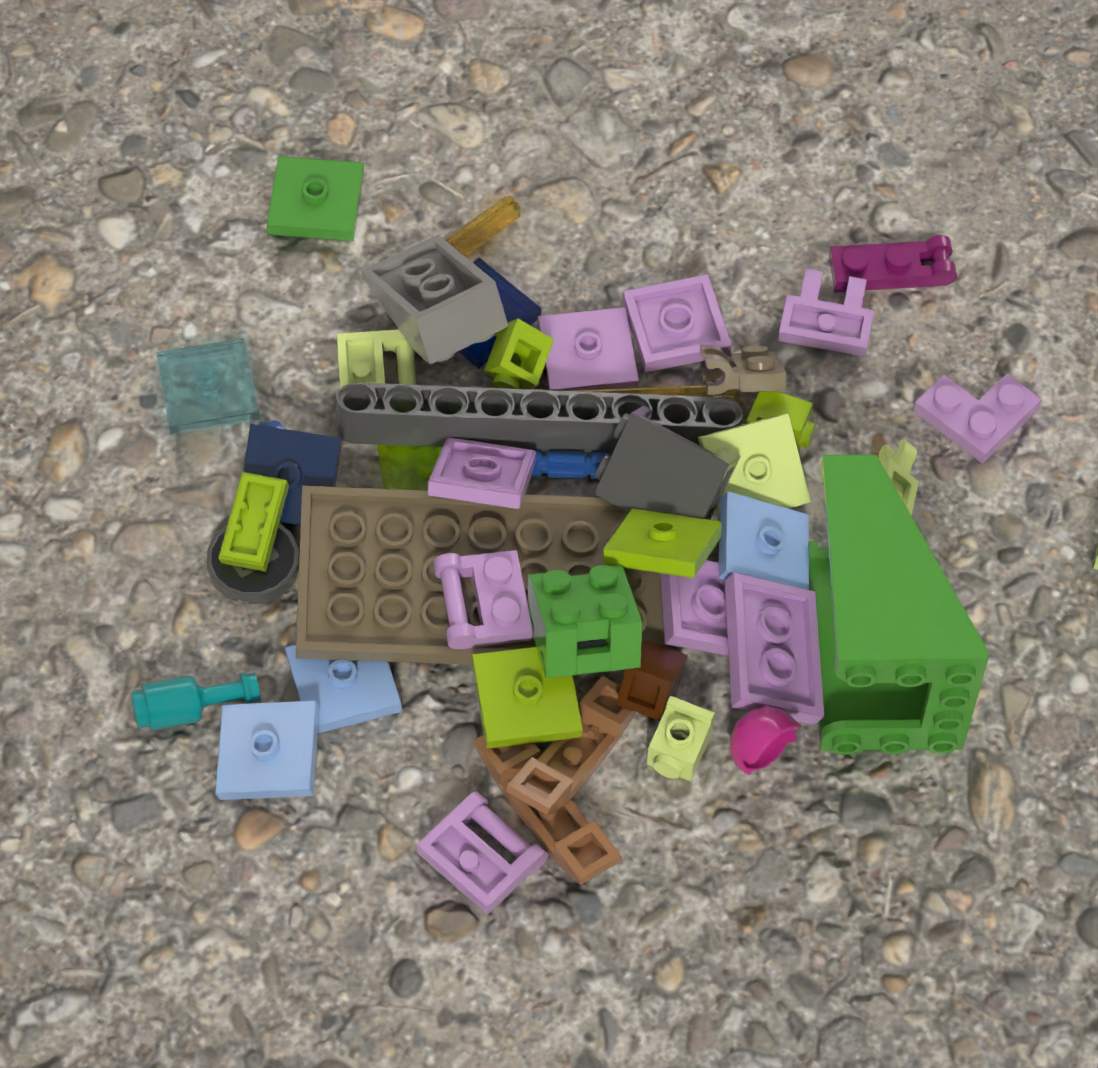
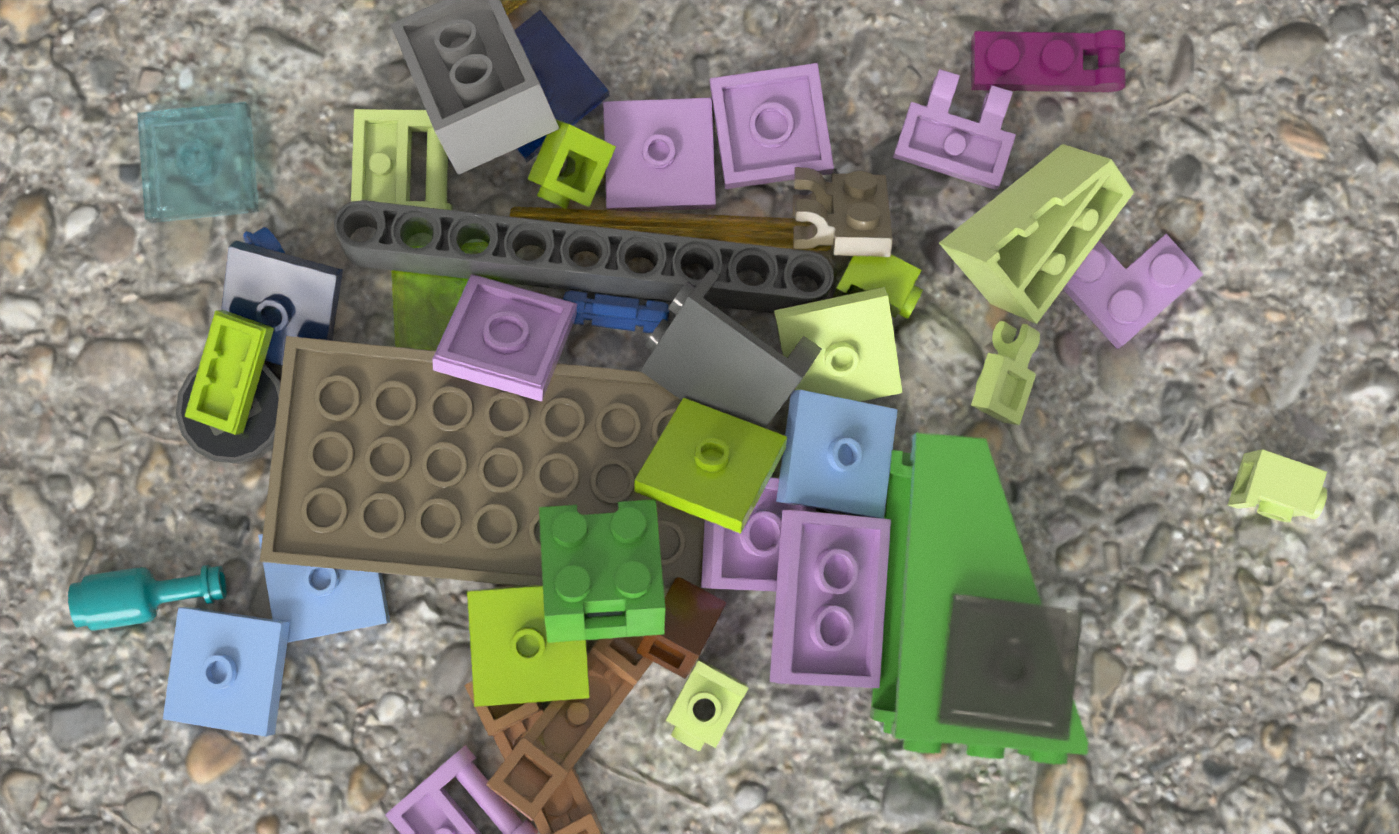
camera: 10 degrees right, 25 degrees up
(498, 596) = (508, 511): lavender plate -> none
(761, 738) = (801, 721): dark pink hair -> none
(901, 372) = (1039, 230): none -> yellowish green wedge
(917, 598) = (1009, 667): none -> clear smoke plate

